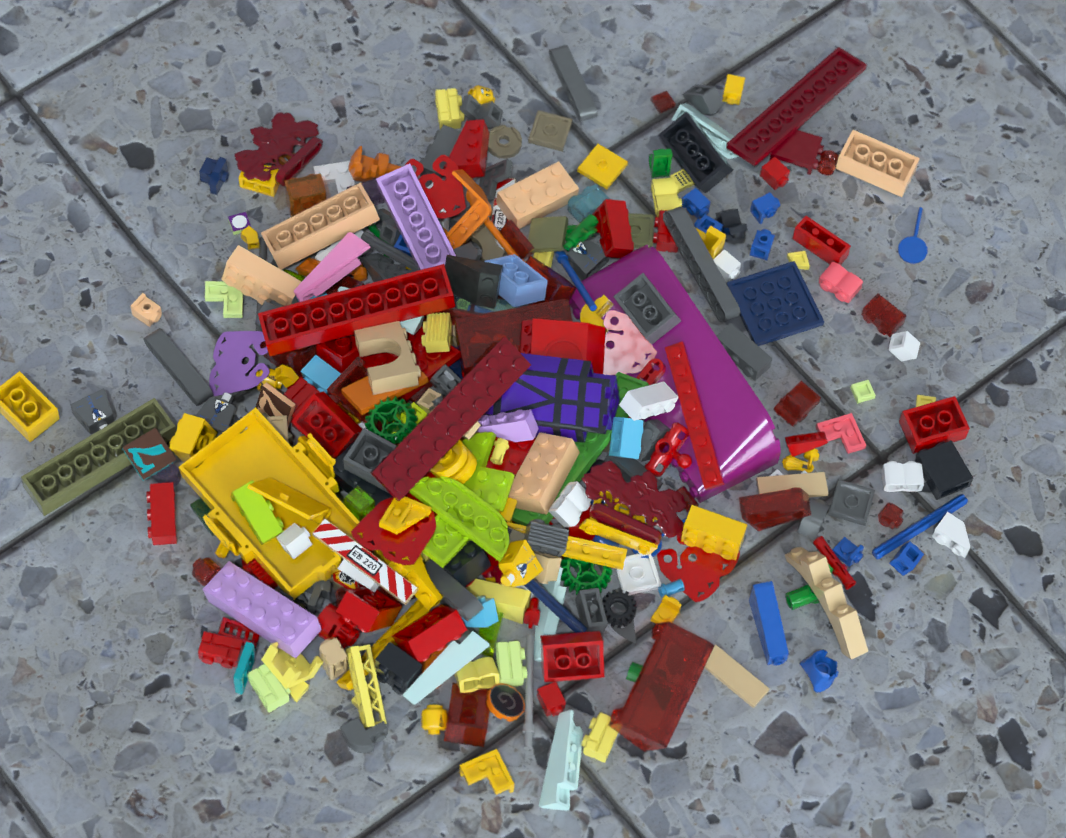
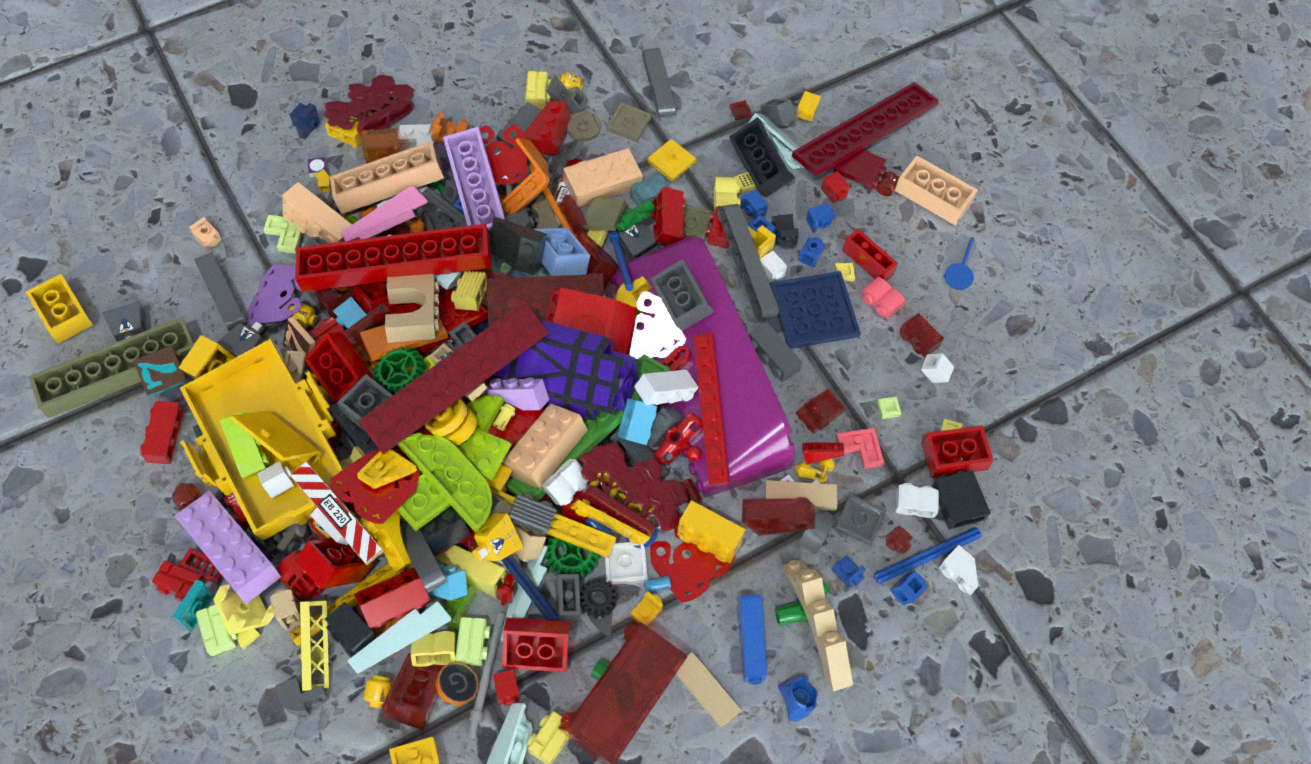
camera: 10 degrees right, 0 degrees up
(285, 375) = (317, 313): yellow piece -> none
(359, 503) = (347, 450): clear neon green brick -> none
(660, 163) = (726, 162): green plate -> none
(839, 569) = (836, 589): red pin -> none

